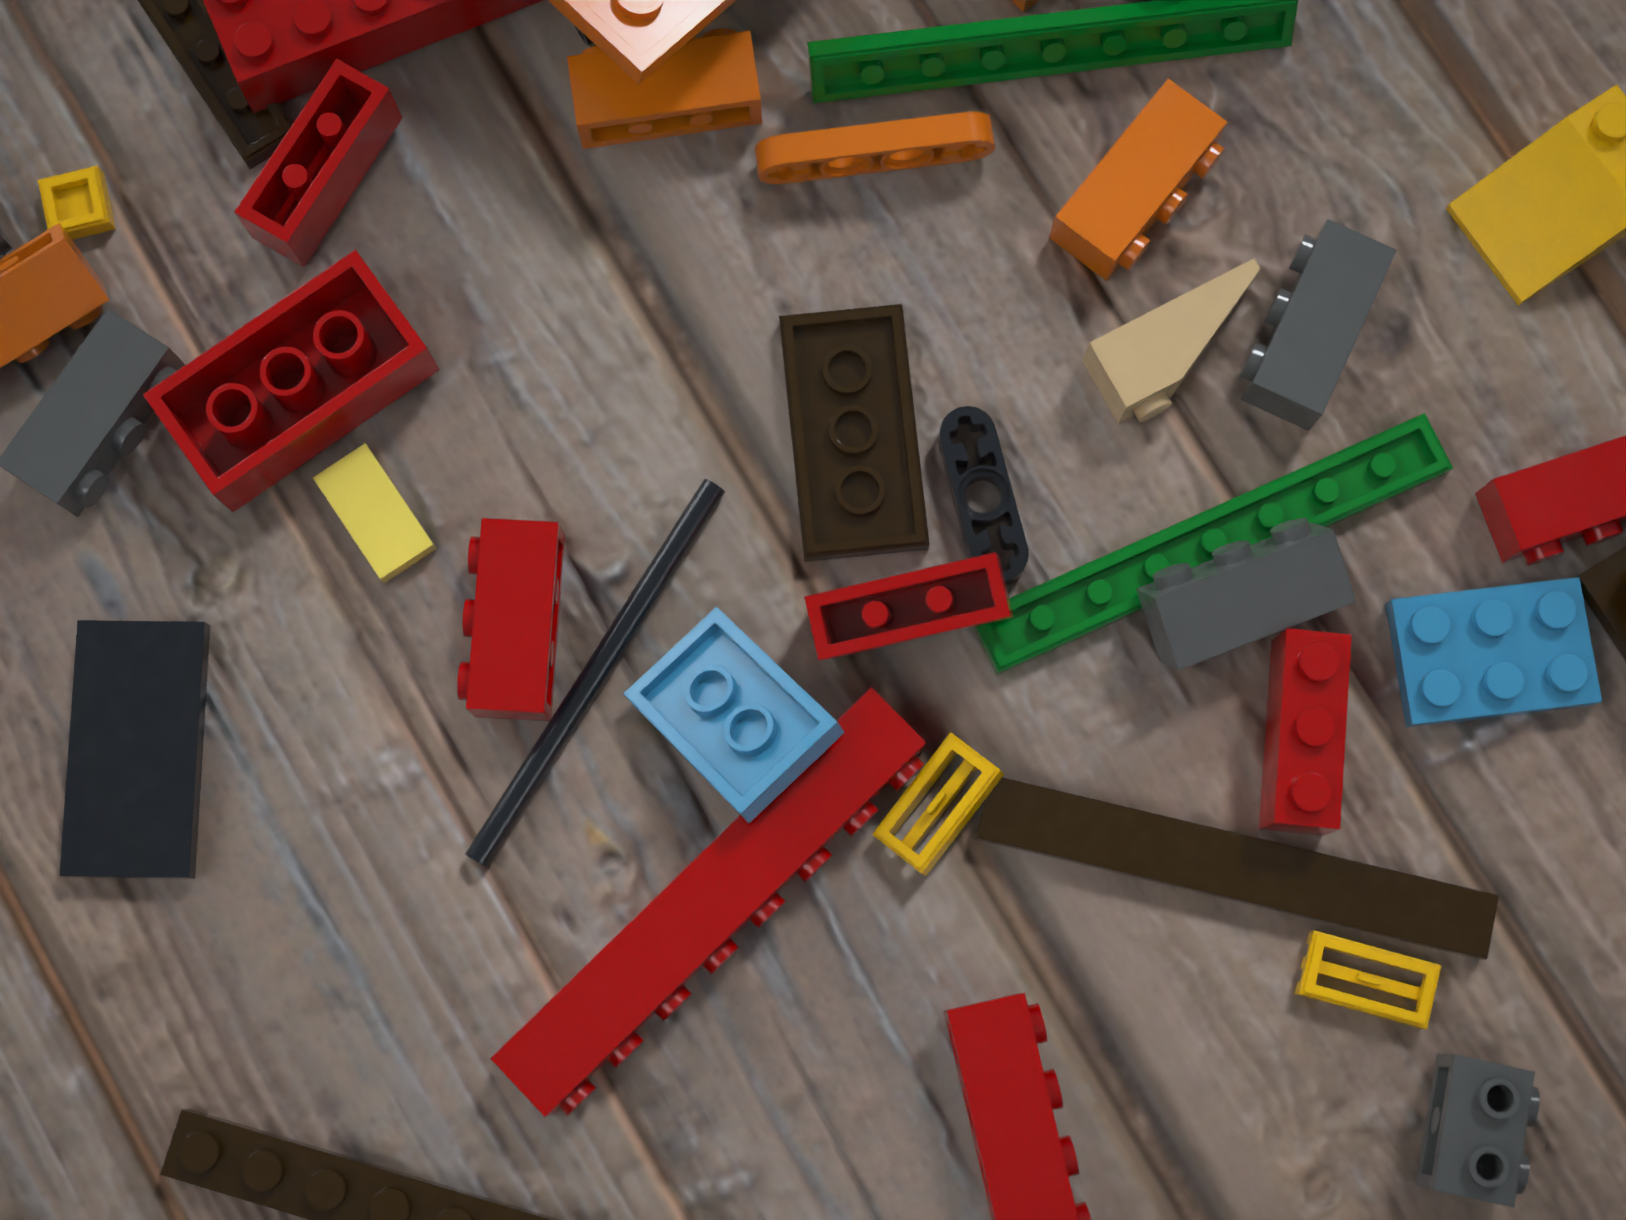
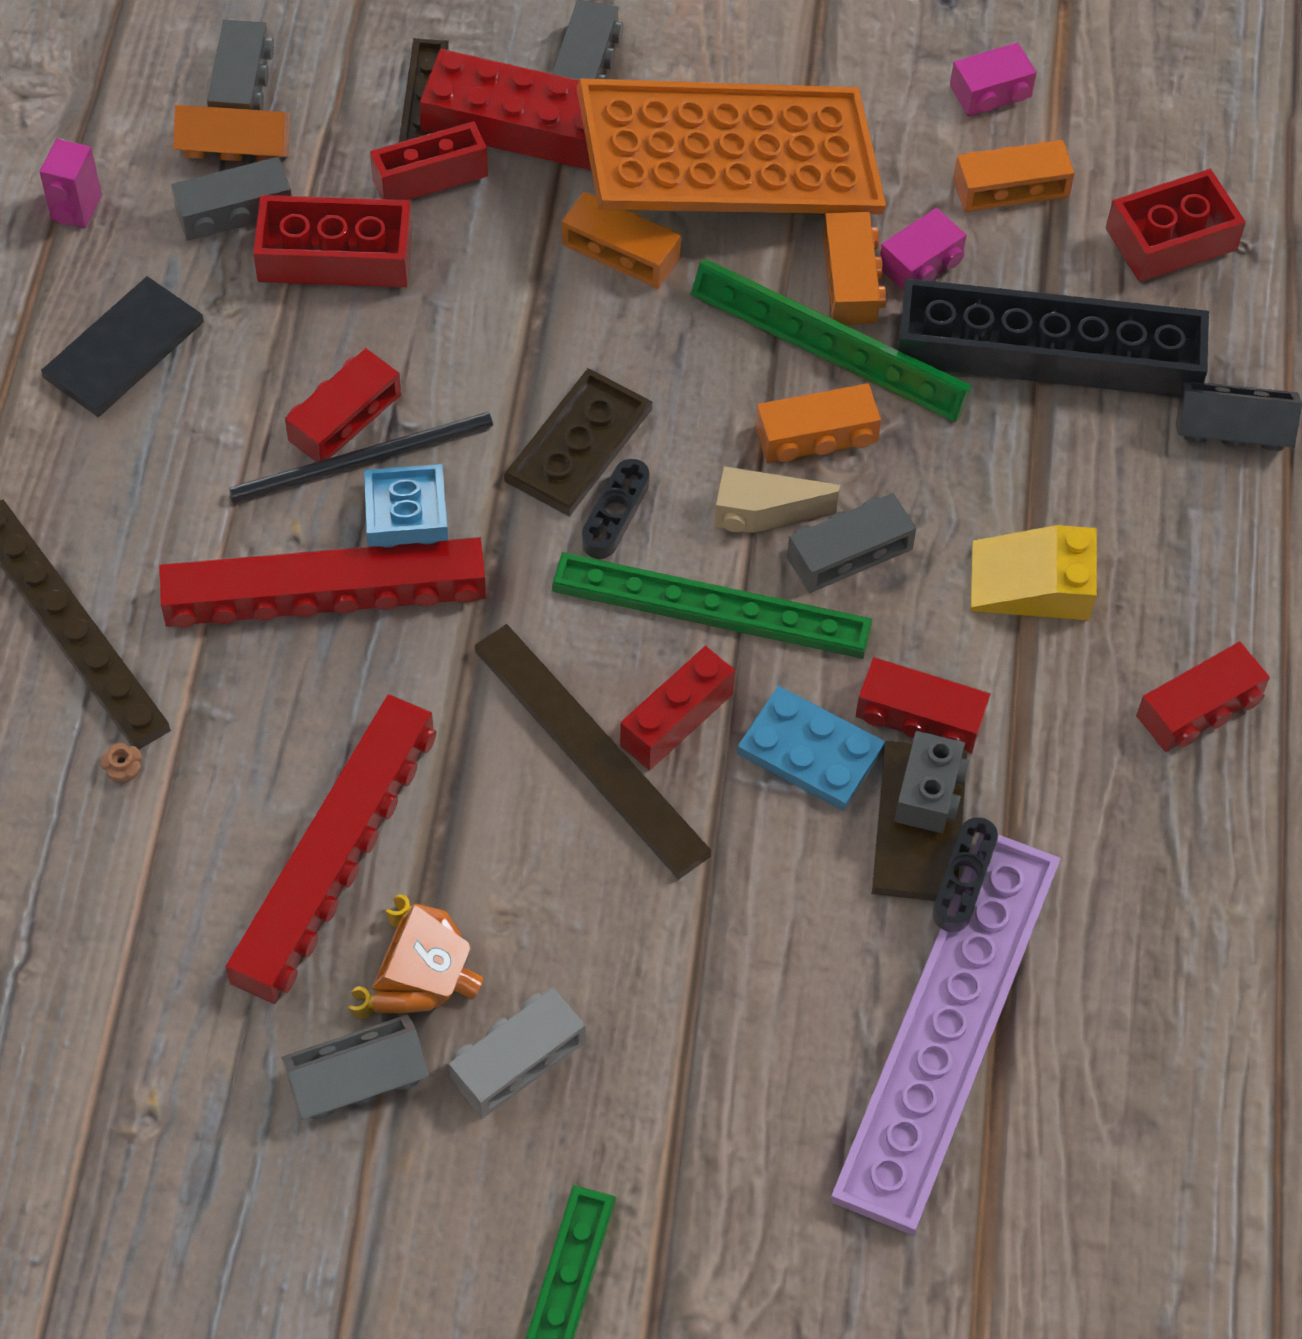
camera: 35 degrees right, 20 degrees down
(77, 202) = (308, 116): yellow tile -> none
(374, 513) = (321, 324): light yellow tile -> none
(874, 147) = (700, 328): orange beam -> none
(908, 606) = (531, 516): red brick -> none
(958, 817) = (467, 619): yellow tile -> none
(1245, 593) = (695, 622): dark grey brick -> none
(1313, 965) = (630, 871): yellow tile -> none
(1477, 1129) = (600, 935): dark grey brick -> none

